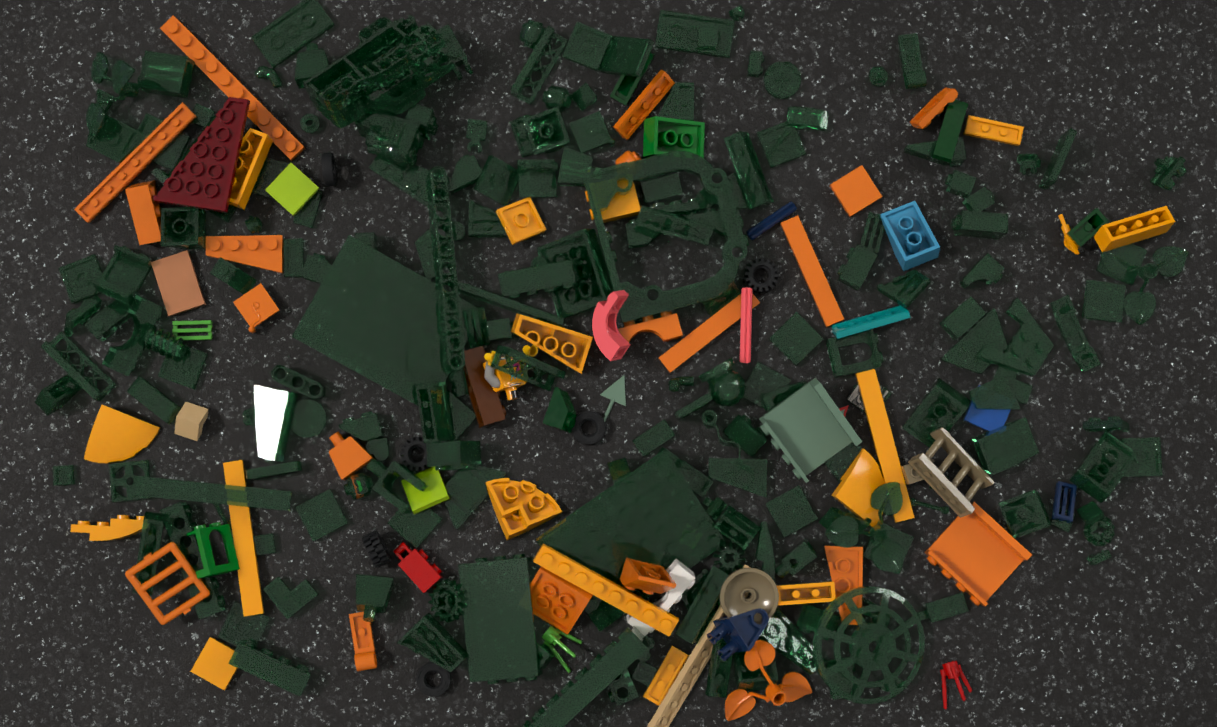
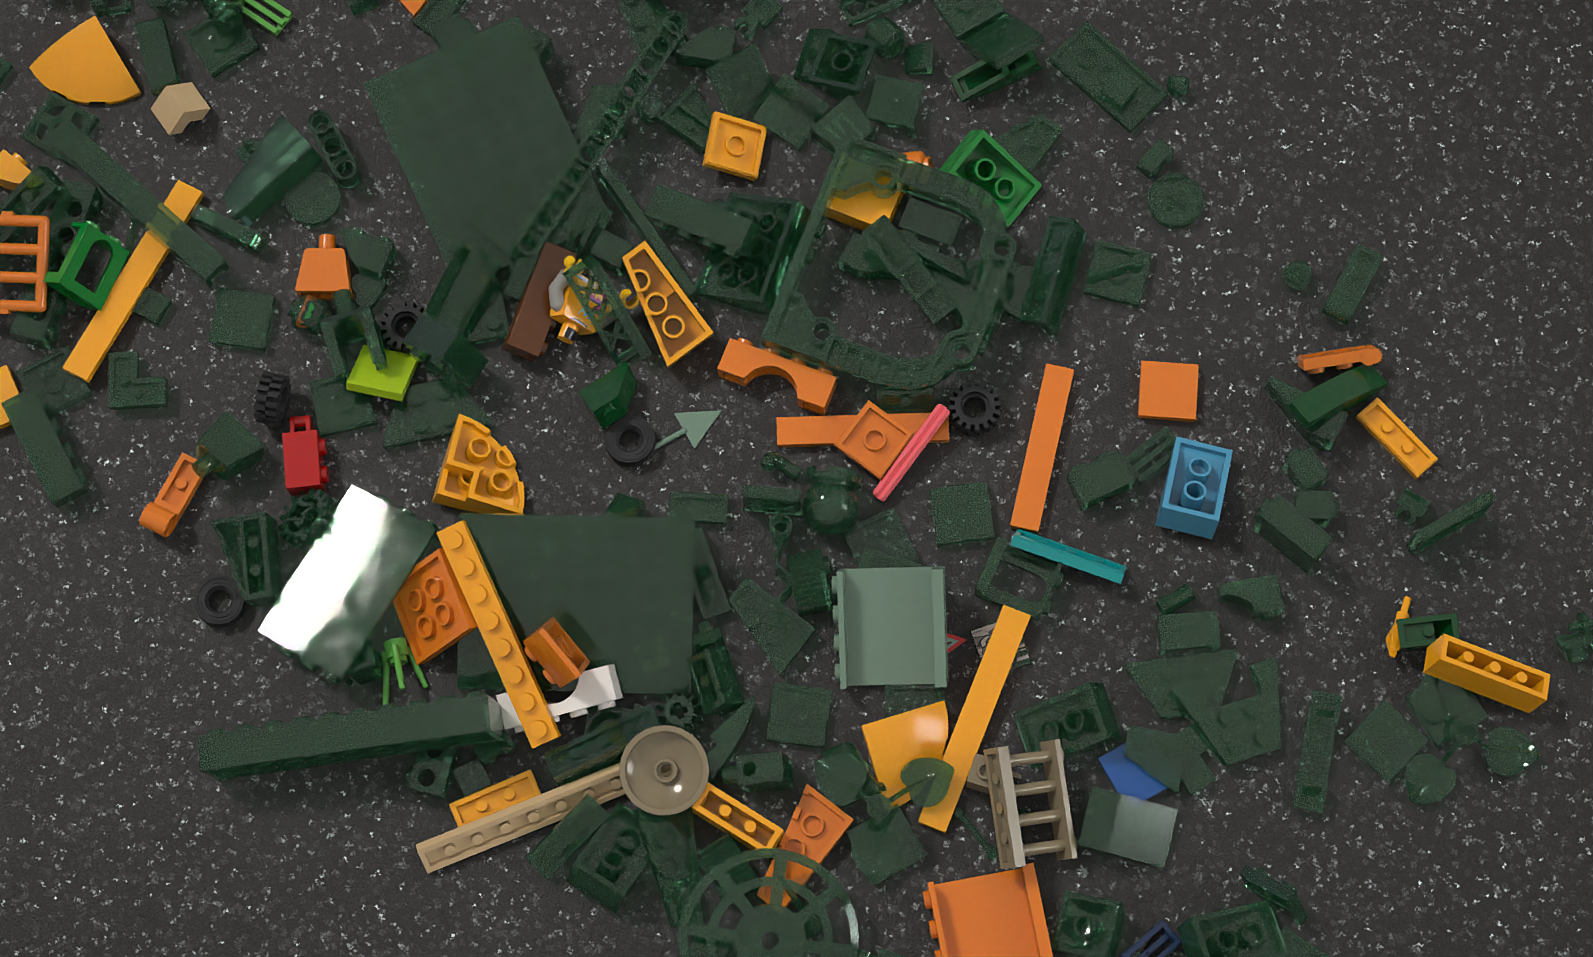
camera: 45 degrees right, 10 degrees down
(256, 306) = (353, 32): orange hat -> none
(605, 326) = (736, 327): coral arch -> none
(644, 104) = (983, 114): orange plate -> none
(721, 332) = (874, 440): none -> orange tile
(738, 632) = (619, 799): dark blue piece -> none
(771, 220) = (1037, 354): dark blue axle -> none
(792, 687) = (635, 928): orange plant -> none
(807, 117) = (1168, 259): clear green slope -> none
(905, 288) = (1142, 546): clear green wing -> none
(942, 305) = (1175, 600): none -> clear green pin

